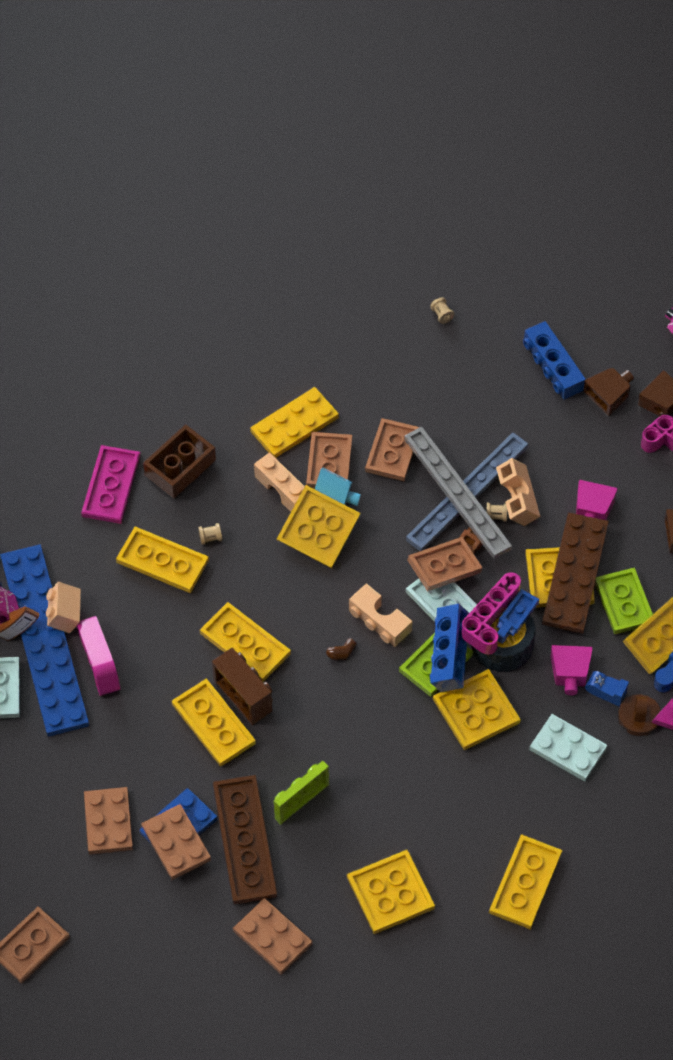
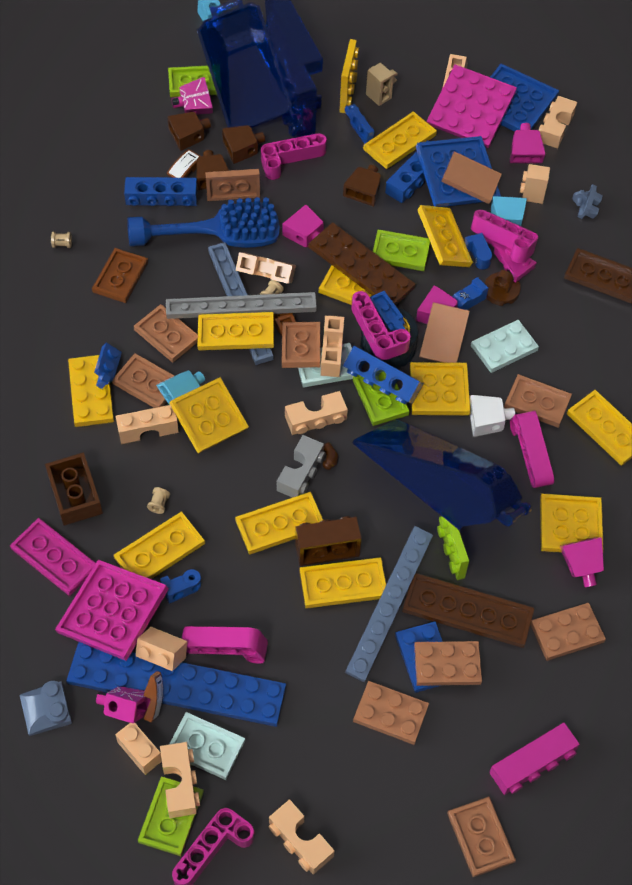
camera: 65 degrees left, 0 degrees up
(79, 551) = (112, 609): none -> dark pink plate
(123, 956) = (534, 758): none -> dark pink brick
(134, 594) = (182, 586): none -> blue leg
(211, 767) = (388, 604): none -> sand blue plate
(296, 635) = (295, 481): none -> light grey arch
(324, 419) = (107, 365): none -> blue hinge
(352, 914) = (584, 559): none -> dark pink torso
(362, 743) = (445, 476): none -> clear blue windscreen
(425, 502) = (235, 331): none -> yellow plate
(436, 379) = (120, 275): none -> dark orange tile
(452, 819) = (533, 448): none -> dark pink beam
(468, 585) = (332, 346): none -> light nougat arch
(470, 765) = (488, 414): none -> white torso
(517, 804) = (535, 396): none -> nougat plate
(539, 683) = (444, 333): none -> nougat tile
(558, 445) = (236, 225): none -> blue piece
(598, 414) = (233, 184): none -> nougat plate
(600, 362) = (183, 165): none -> white slope
(647, 342) = (187, 129): none -> reddish brown torso

